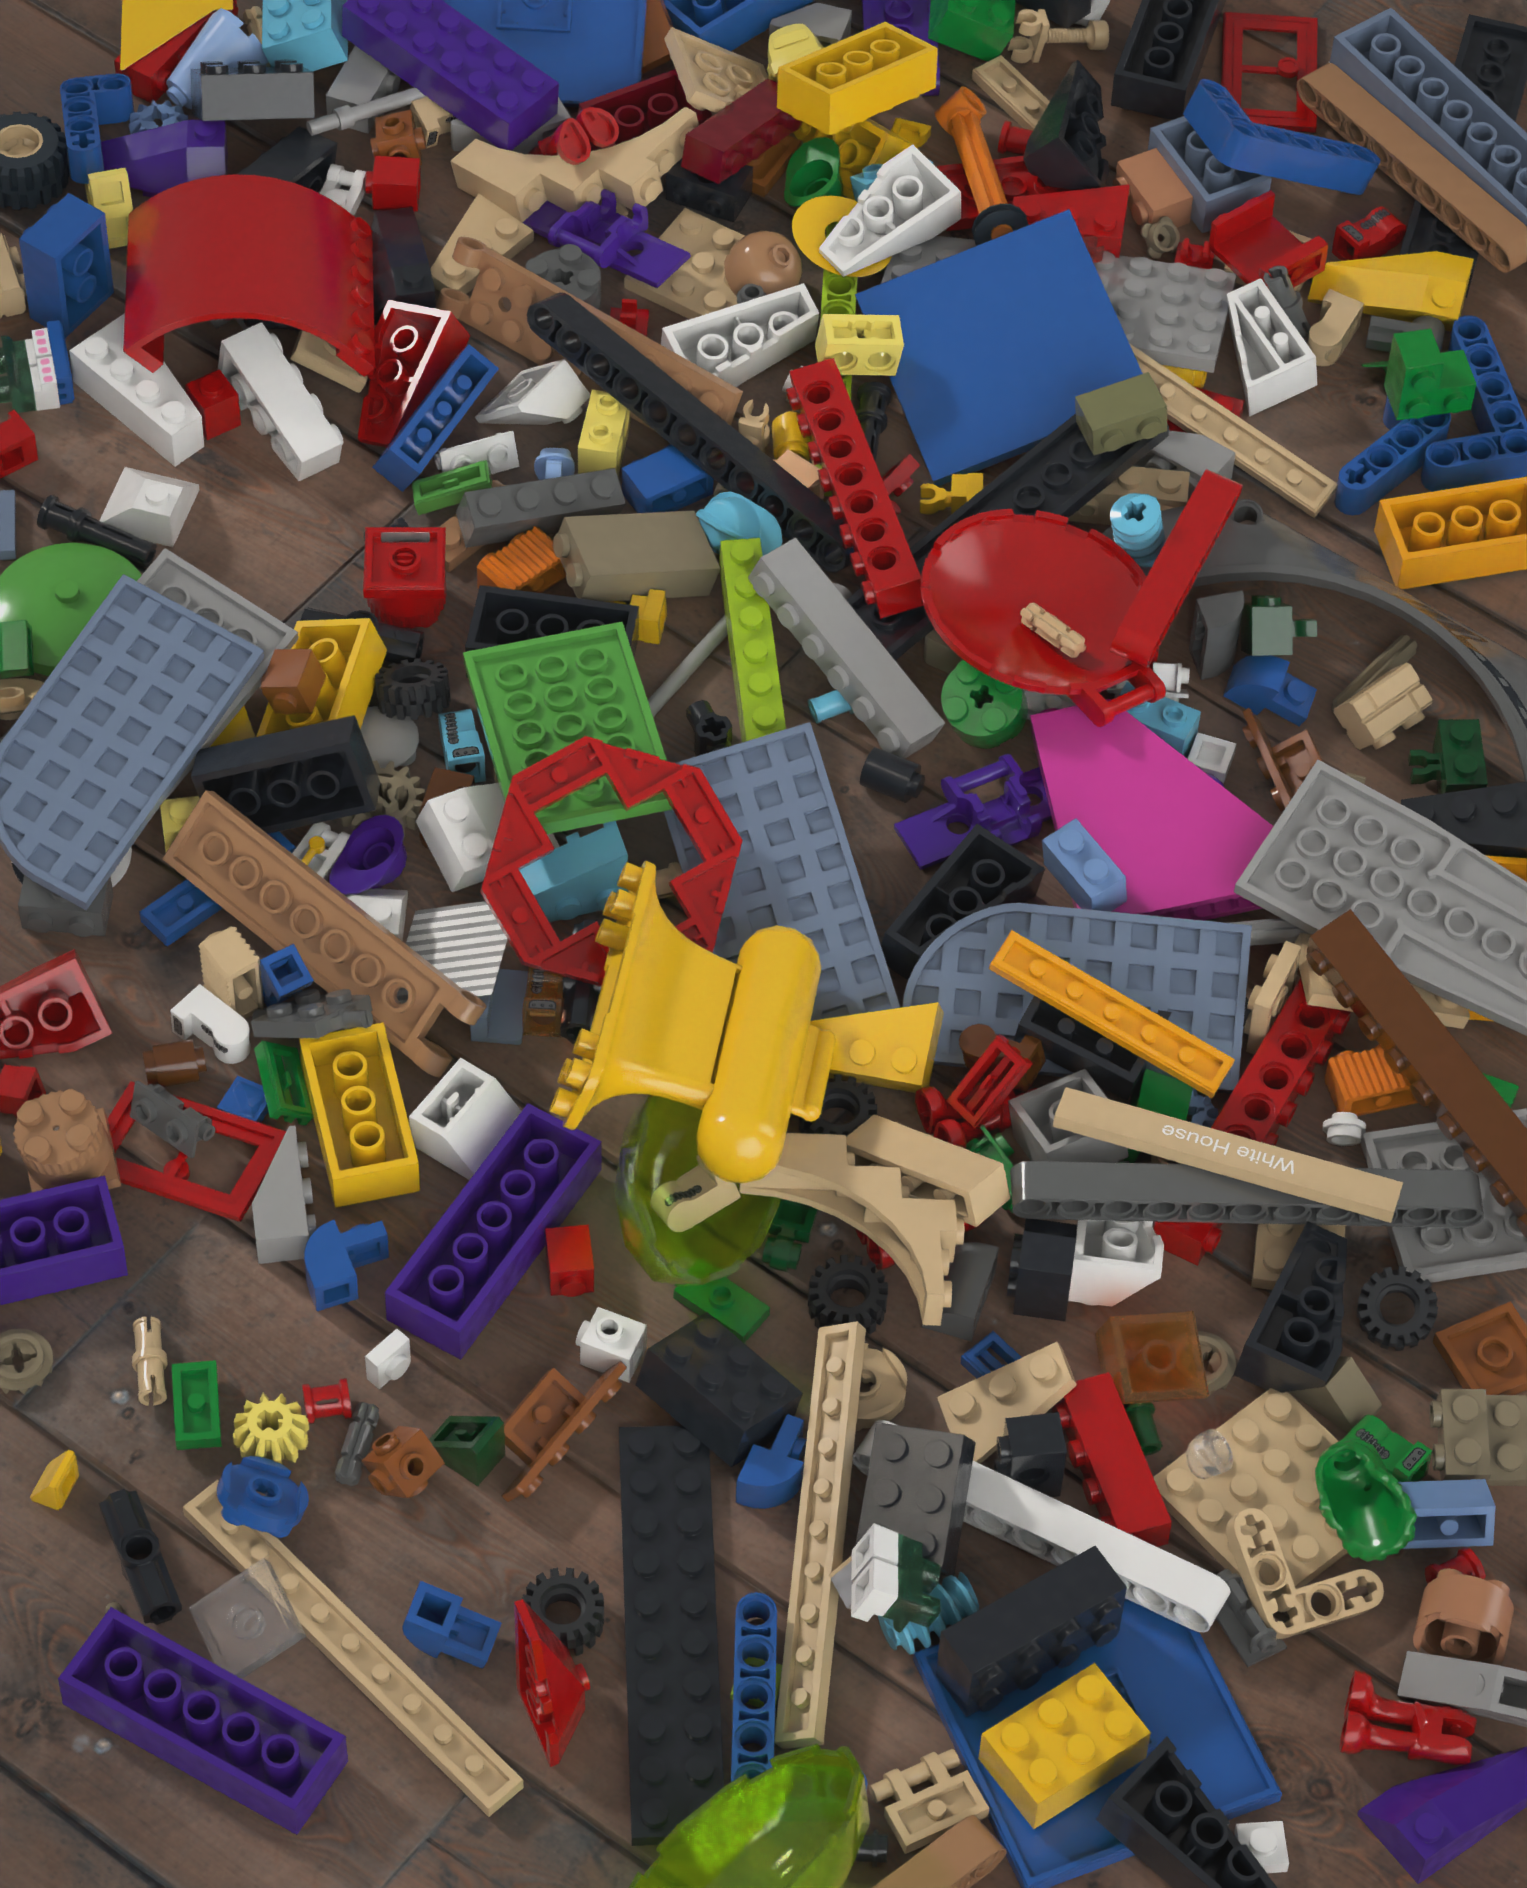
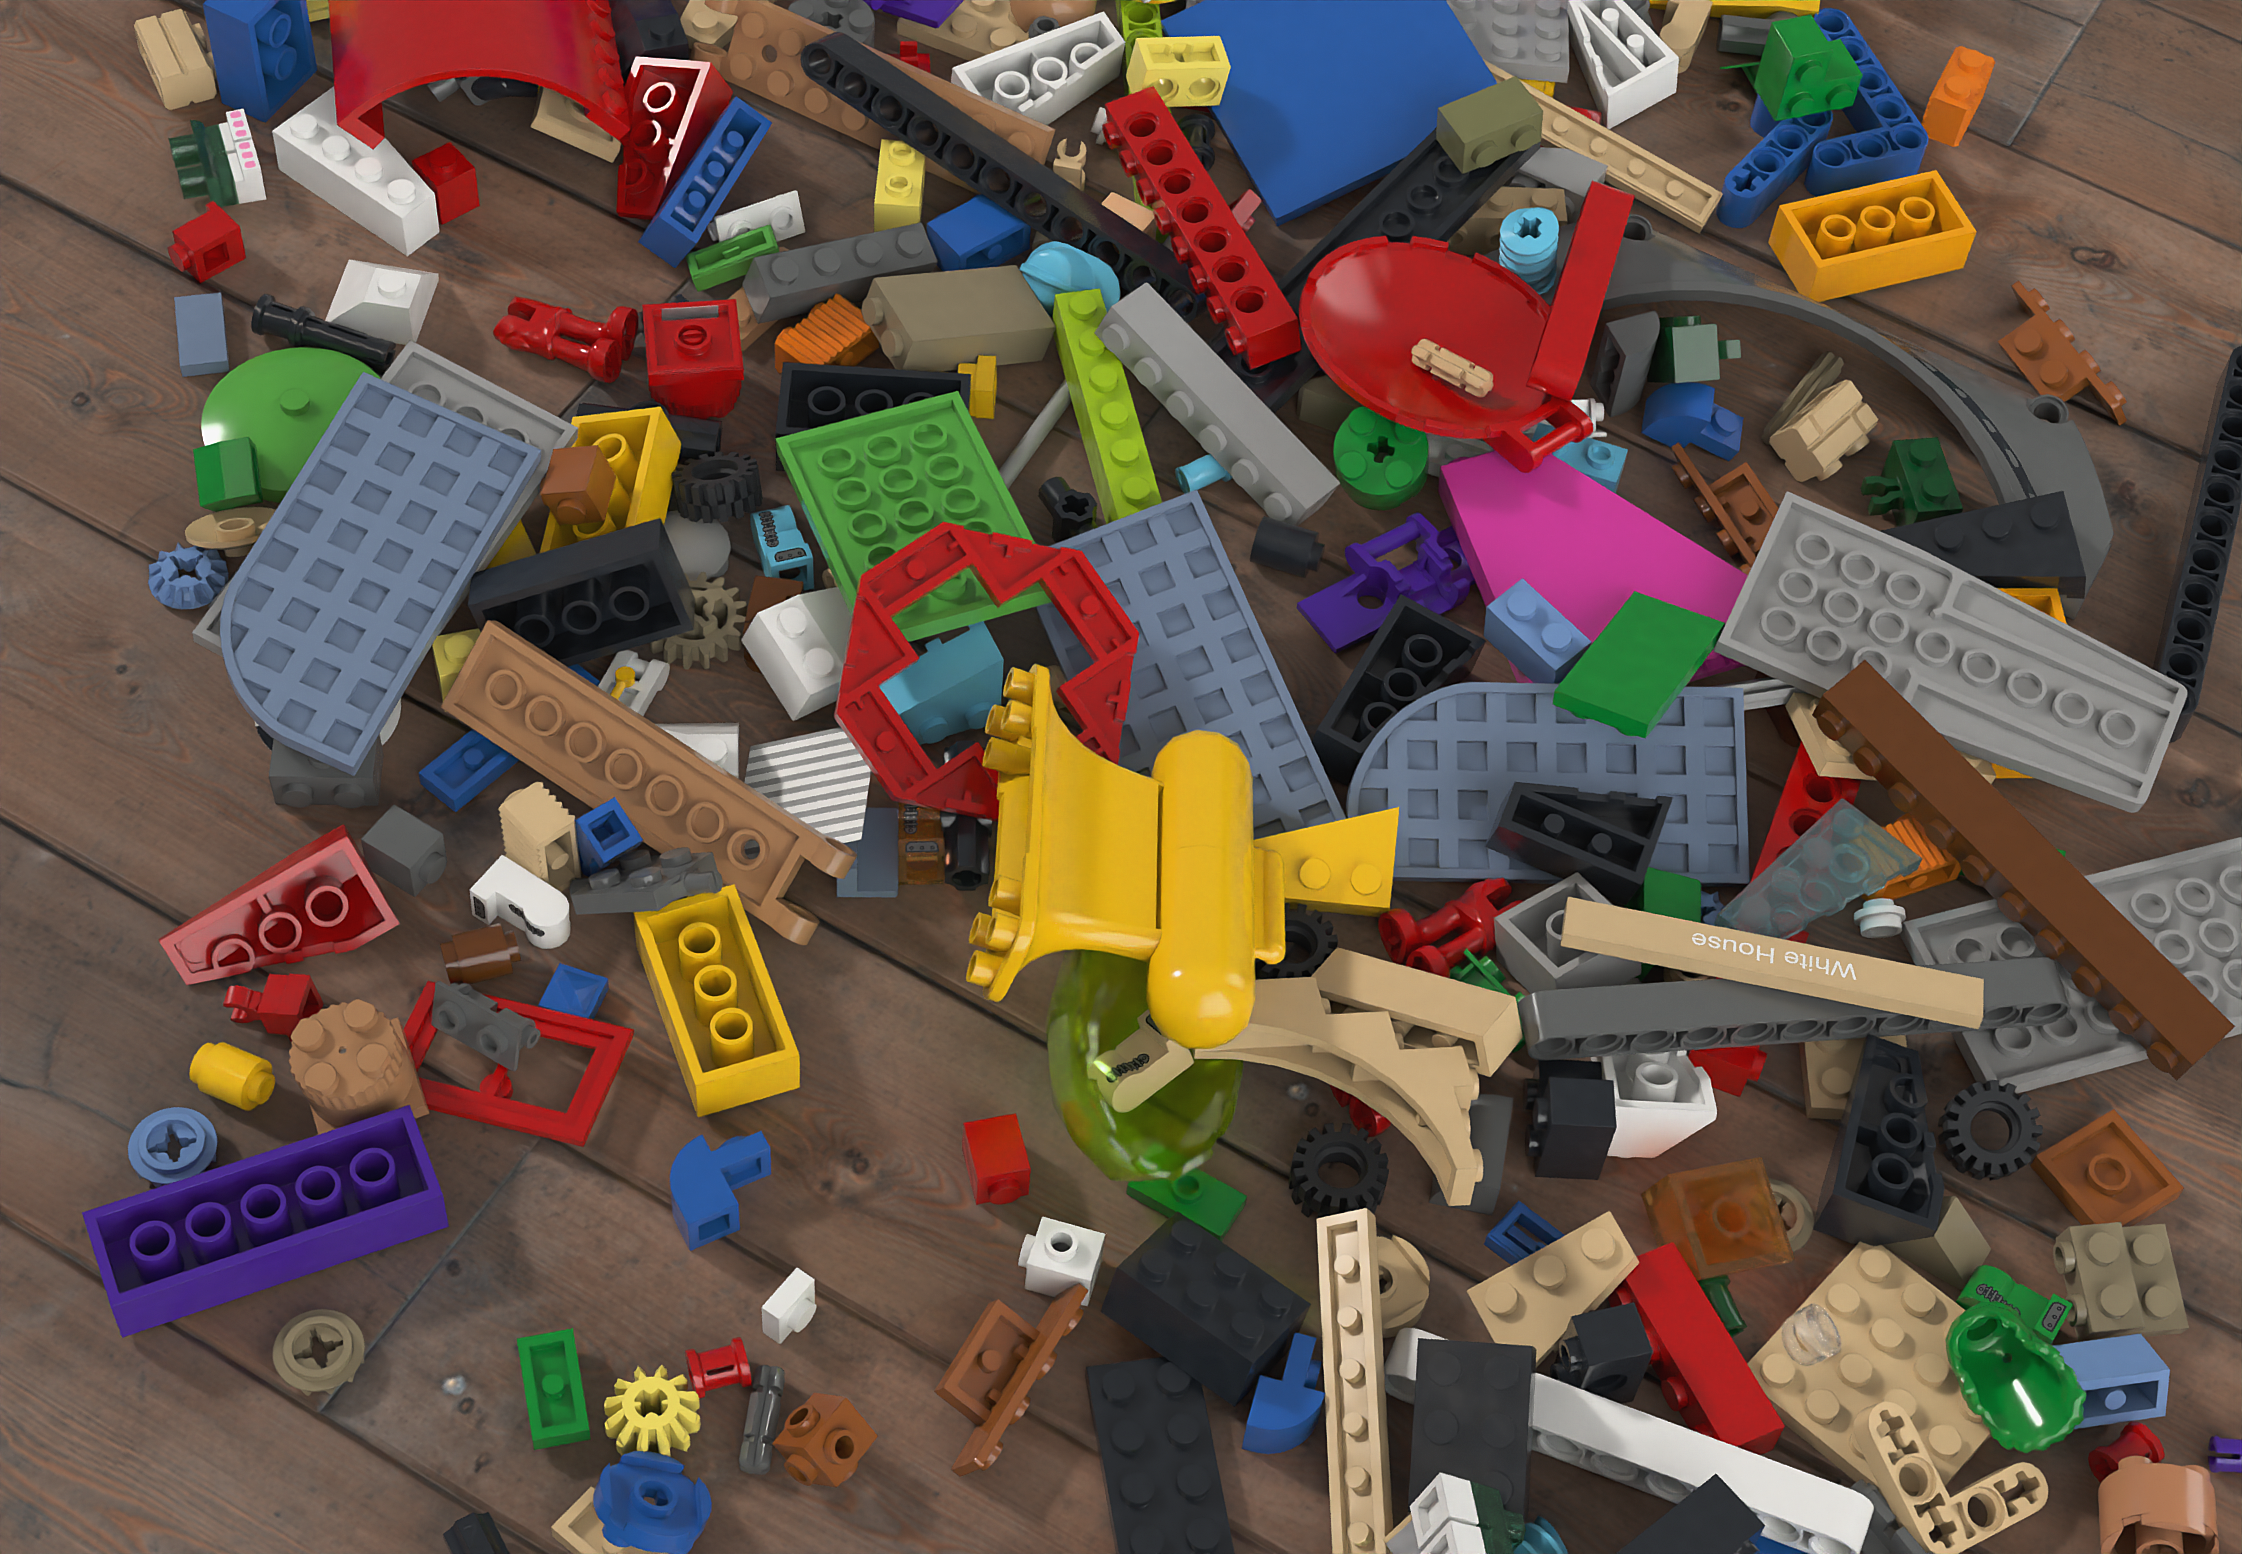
camera: 10 degrees left, 0 degrees up
(56, 1481) = (383, 1507): yellow slope -> none
(60, 362) = (263, 146): blue tile -> none
(122, 974) = (405, 851): none -> dark grey brick
(149, 1361) = (488, 1336): tan pin -> none
(277, 1082) = (609, 967): green tile -> none
(278, 539) = (539, 327): none -> red piece
(279, 401) = (523, 174): white wedge -> none
(280, 1204) = (631, 1125): light grey slope -> none
(371, 856) = (691, 685): dark purple piece -> none
(463, 1118) = (850, 998): white slope -> none
(471, 1445) = (904, 1407): dark green slope -> none
(493, 1231) = (898, 1133): dark purple brick -> none
(538, 397) = (819, 153): white slope -> none
(554, 463) = (845, 223): light blue piece -> none
(788, 436) = (1107, 176): yellow brick -> none
(790, 1223) = (1259, 1090): dark green plate -> none
(962, 490) = (1313, 226): yellow piece -> none
(978, 1037) = (1476, 867): reddish brown leg -> none
(1020, 1067) = (1496, 863): red tile -> none
(1111, 1014) = (1606, 805): light orange tile -> none
(1162, 898) = (1638, 665): none -> green tile
(1212, 755) = (1645, 494): white plate -> none
(1269, 999) = (1771, 770): tan plate -> none
(1290, 1087) = (1819, 875): none -> clear light blue wing

